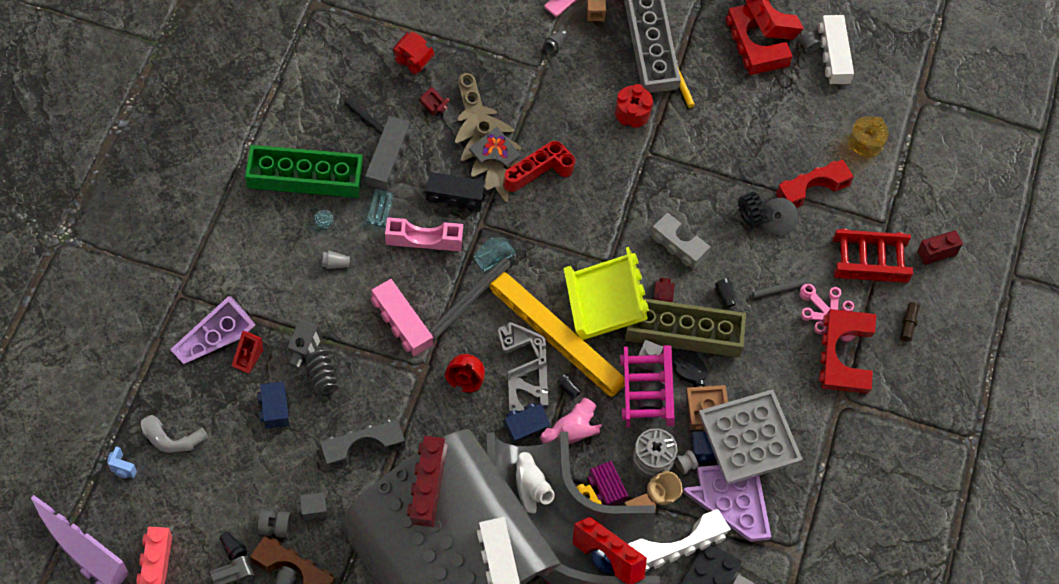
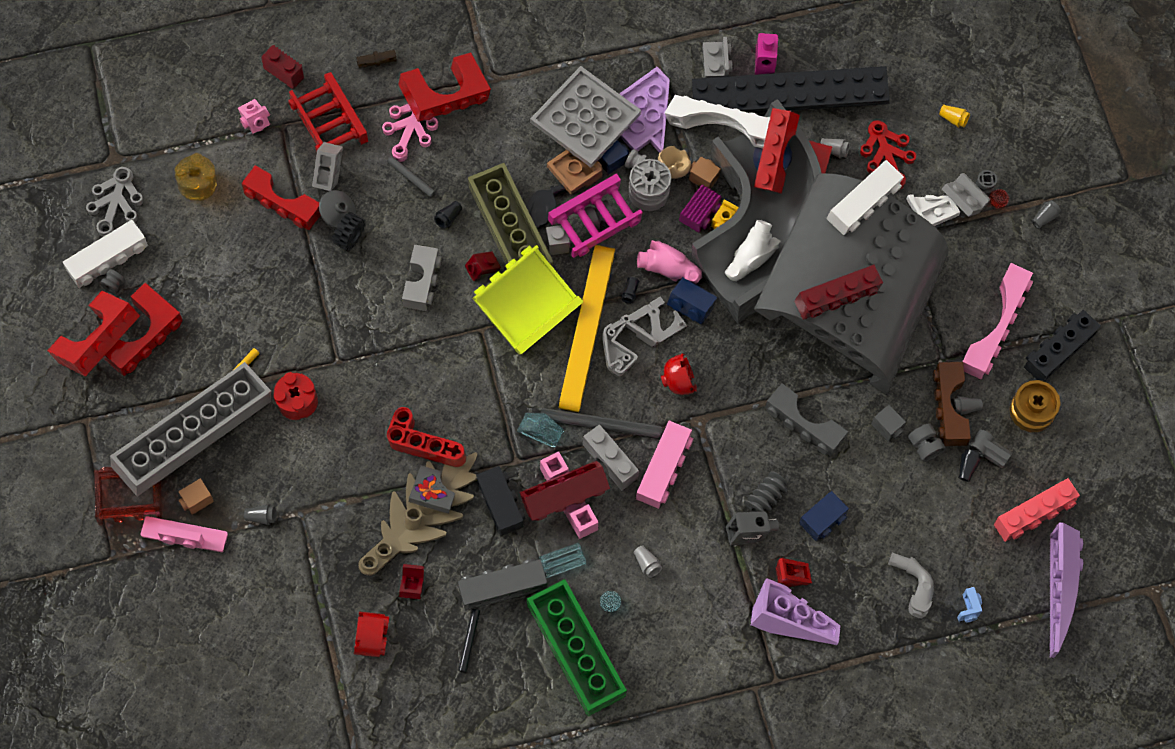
camera: 120 degrees left, 5 degrees up
(426, 225) = (565, 490): none -> dark red brick
(445, 279) = (619, 466): none -> light grey arch
(821, 223) = (327, 166): none -> light grey brick
(882, 80) = (115, 199): none -> light grey plant
(902, 201) = (254, 116): none -> bright pink brick

